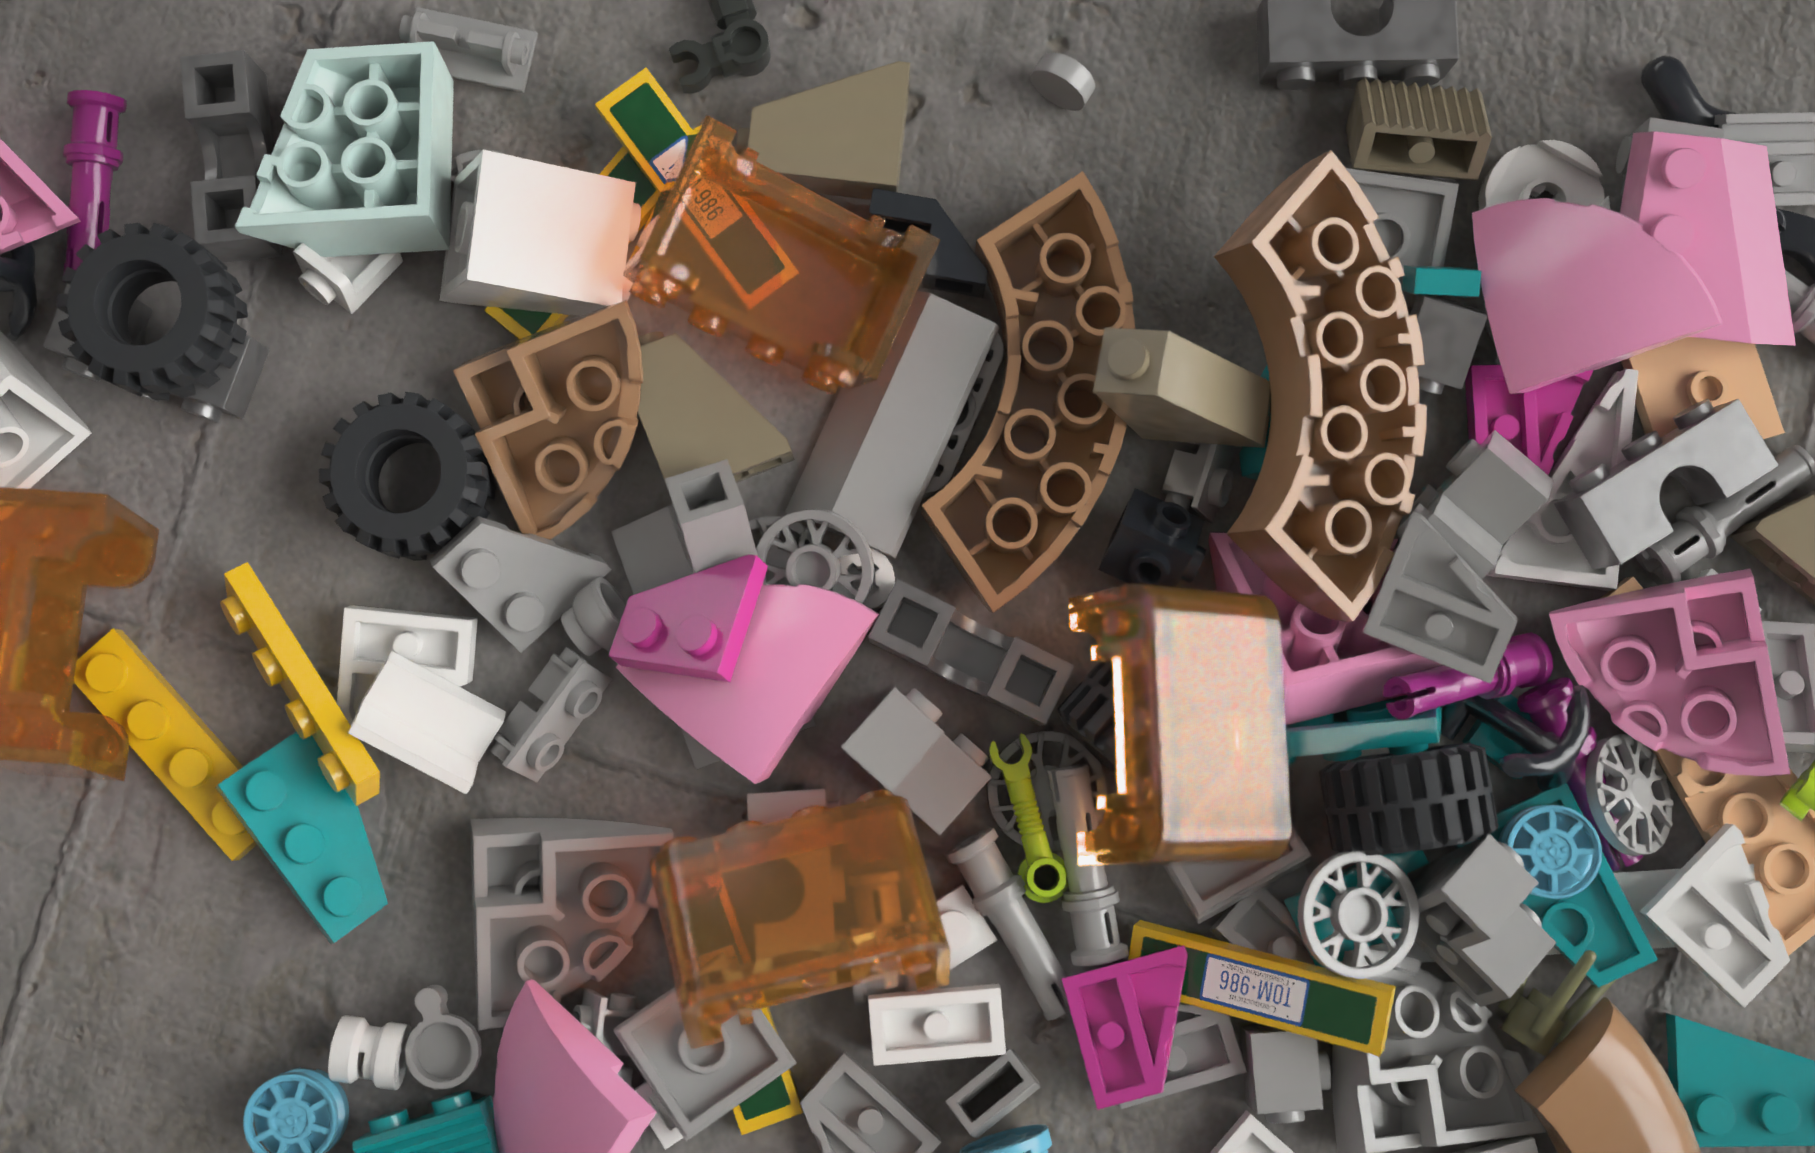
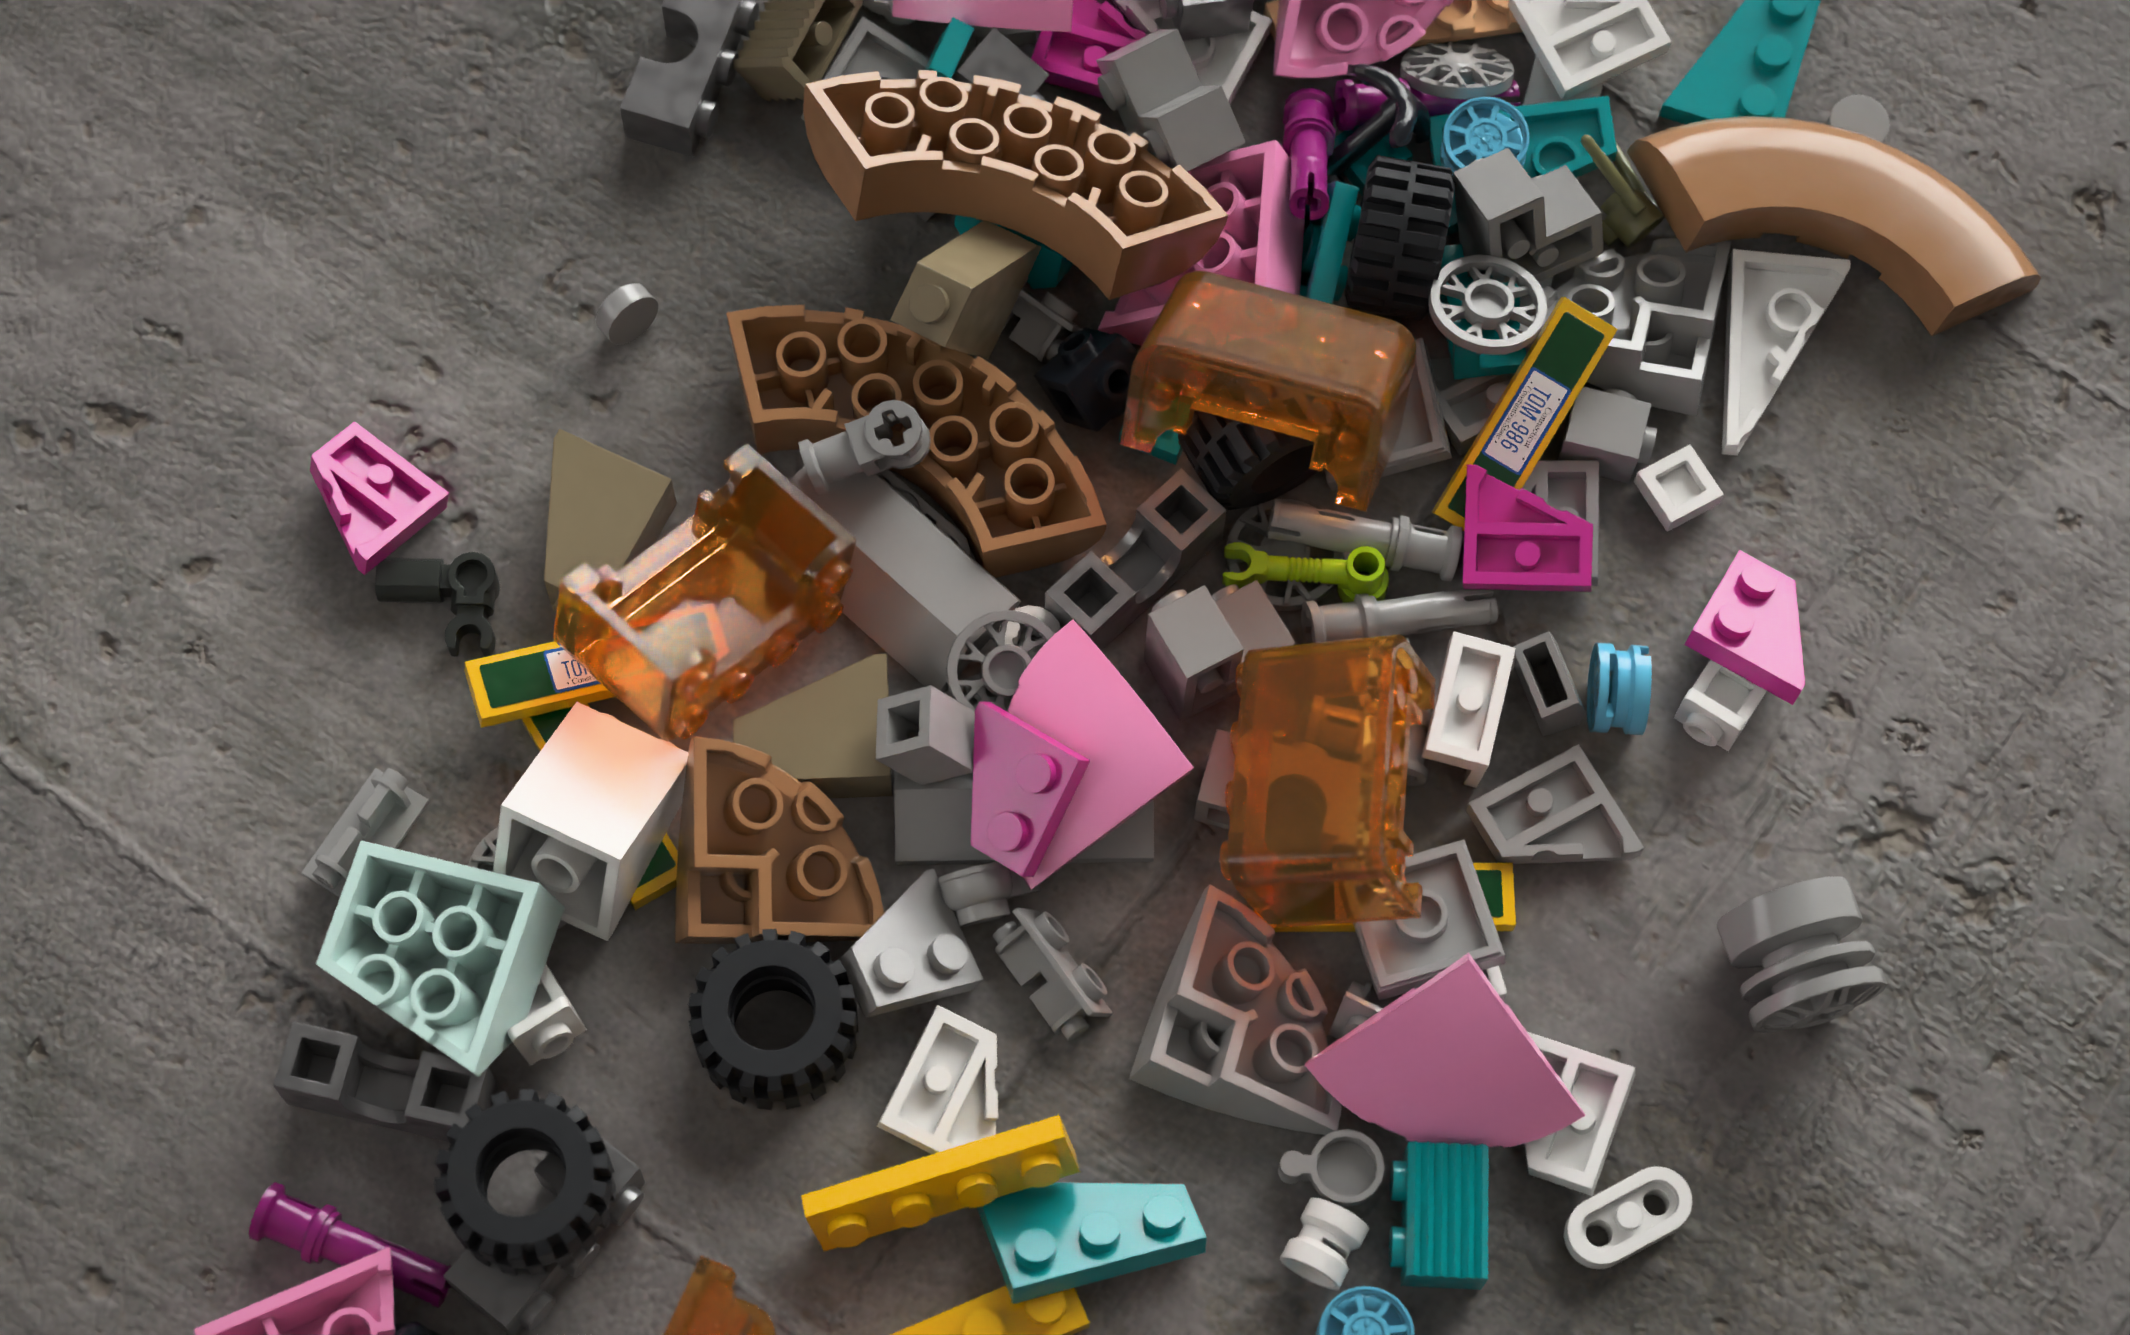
camera: 70 degrees left, 15 degrees down
(426, 722) = (1017, 1075): white panel -> none
(954, 263) = (707, 469): black slope -> none
(981, 354) = (867, 446): none -> light grey connector
(1440, 606) = (1239, 143): light grey wing -> none

